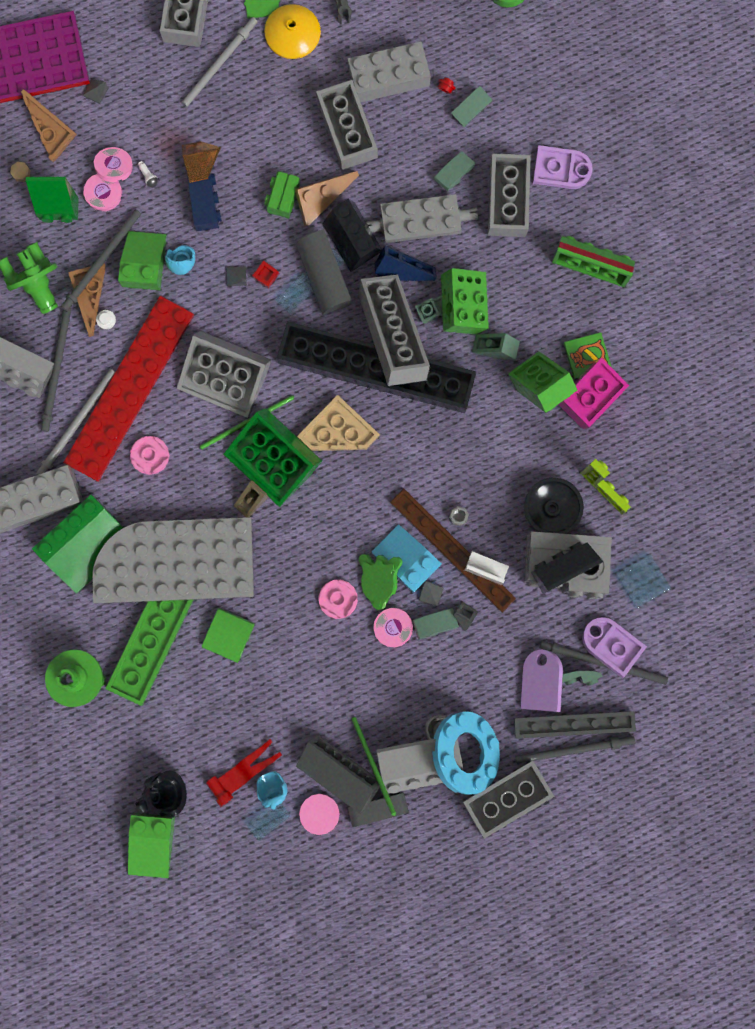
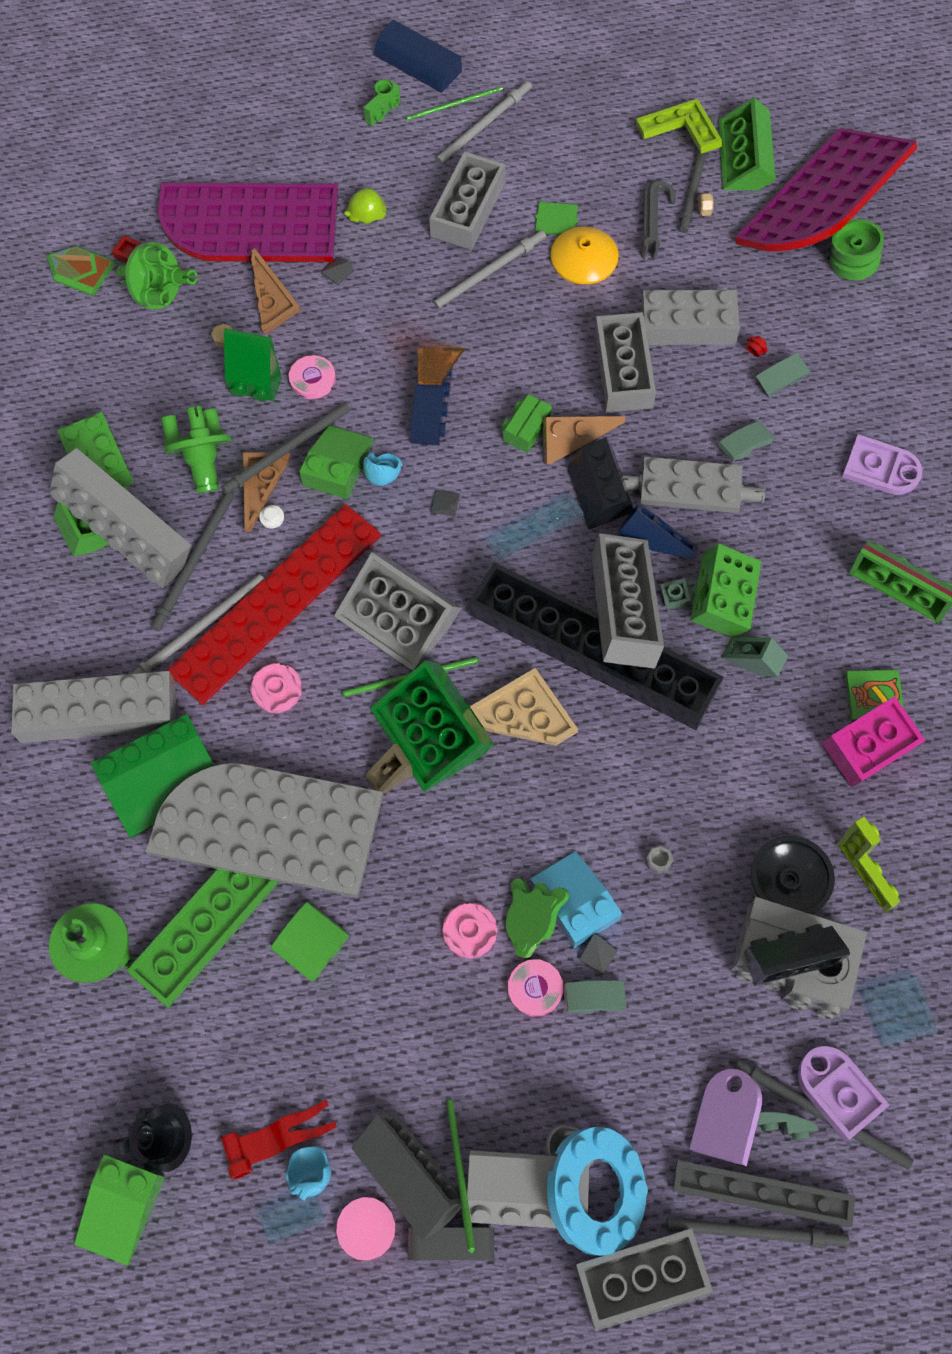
camera: 20 degrees right, 15 degrees down
(103, 26) = (366, 206): none -> lime hair
(113, 164) = (333, 349): bright pink tile -> none
(150, 179) = (373, 375): white piece -> none
(265, 274) = (482, 508): red plate -> none
(323, 272) = (554, 519): dark grey brick -> none
(449, 547) = (642, 906): reddish brown tile -> none
(465, 615) = (638, 996): dark grey slope -> none
(486, 568) = (682, 937): white panel -> none
(509, 195) = (809, 481): light grey brick -> none
(542, 382) = (810, 709): bright green piece -> none

